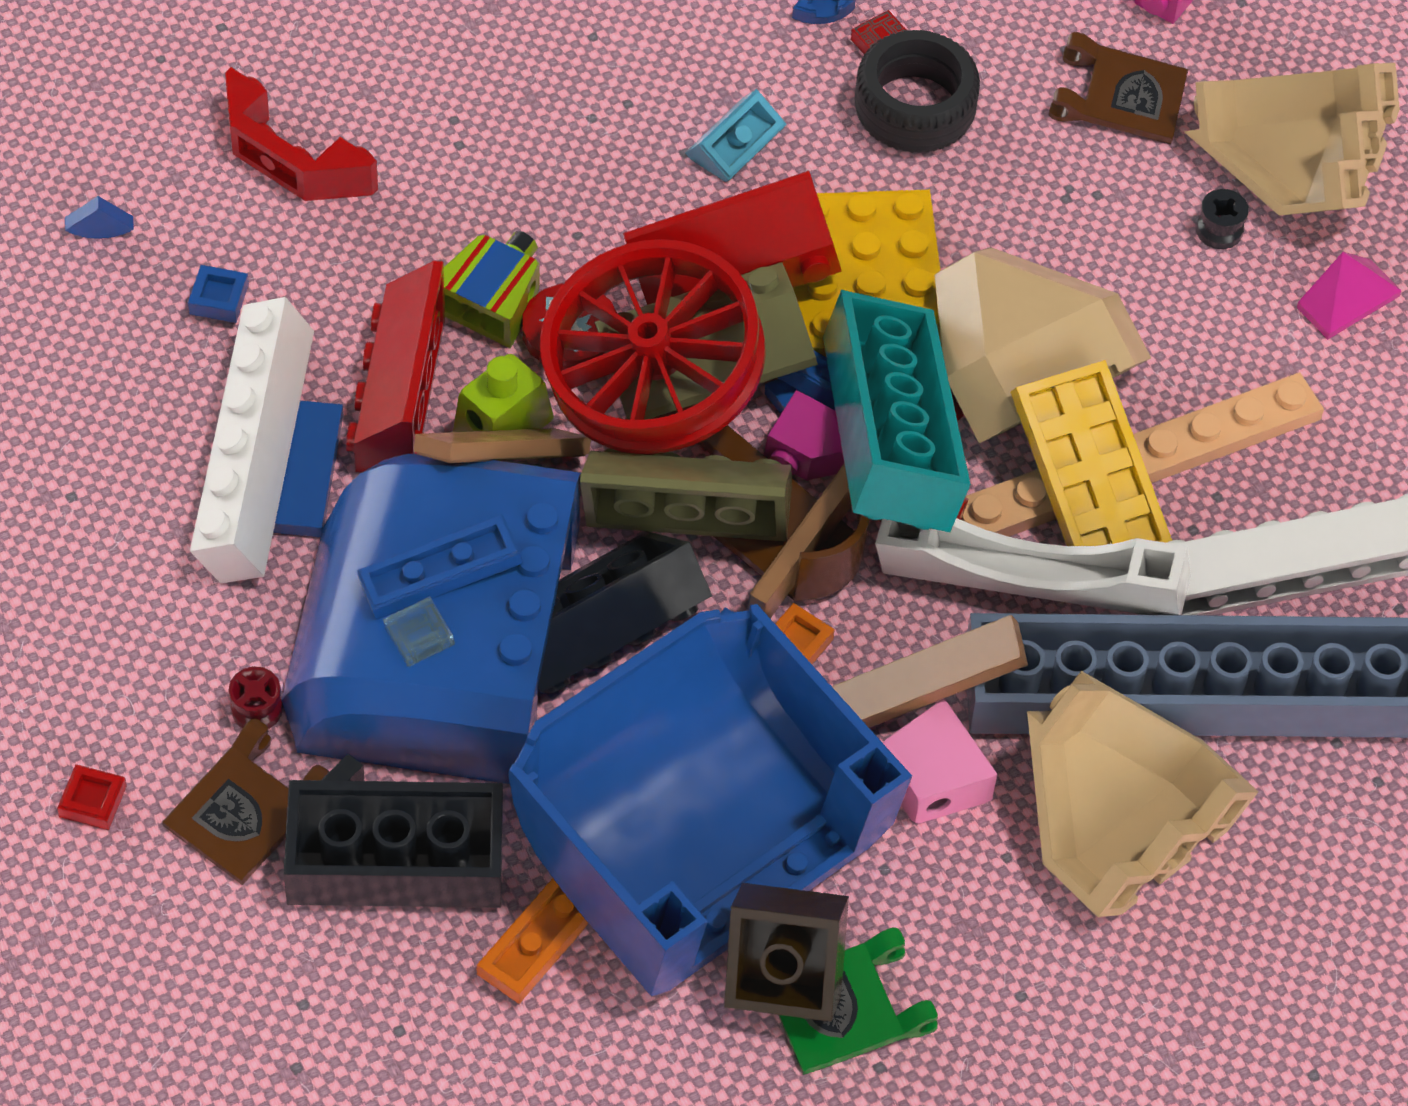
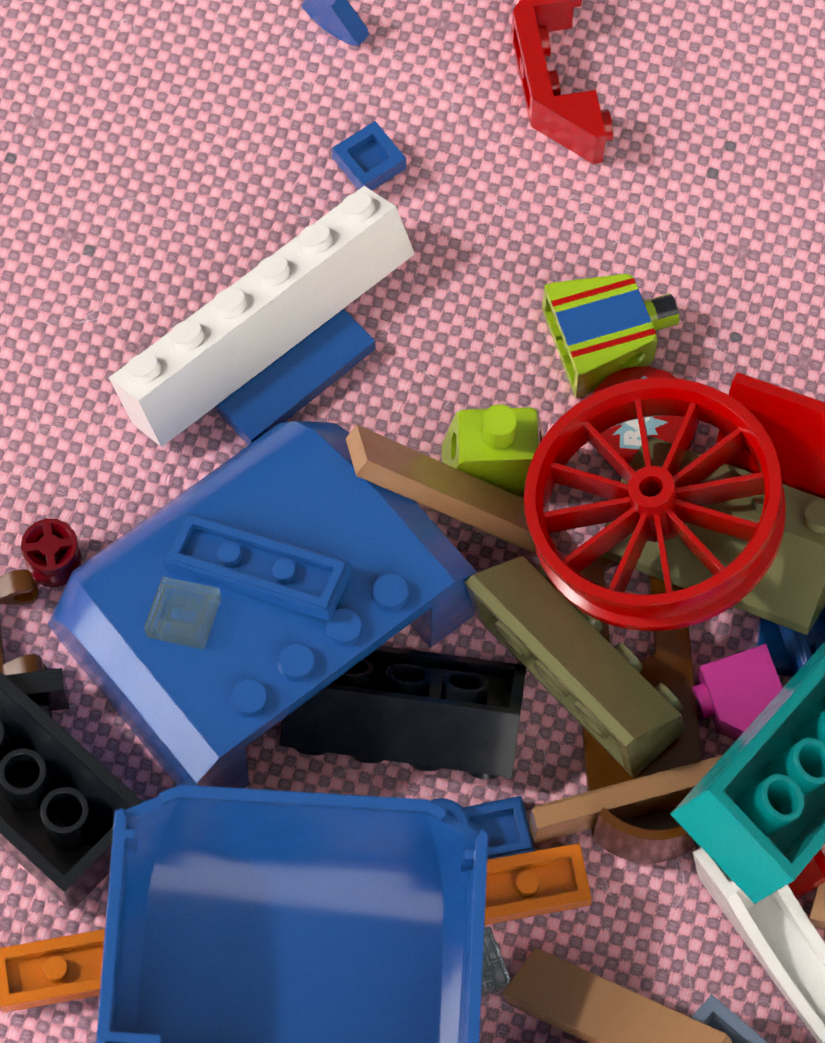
camera: 45 degrees right, 10 degrees up
(399, 367) = (445, 350): red slope -> none

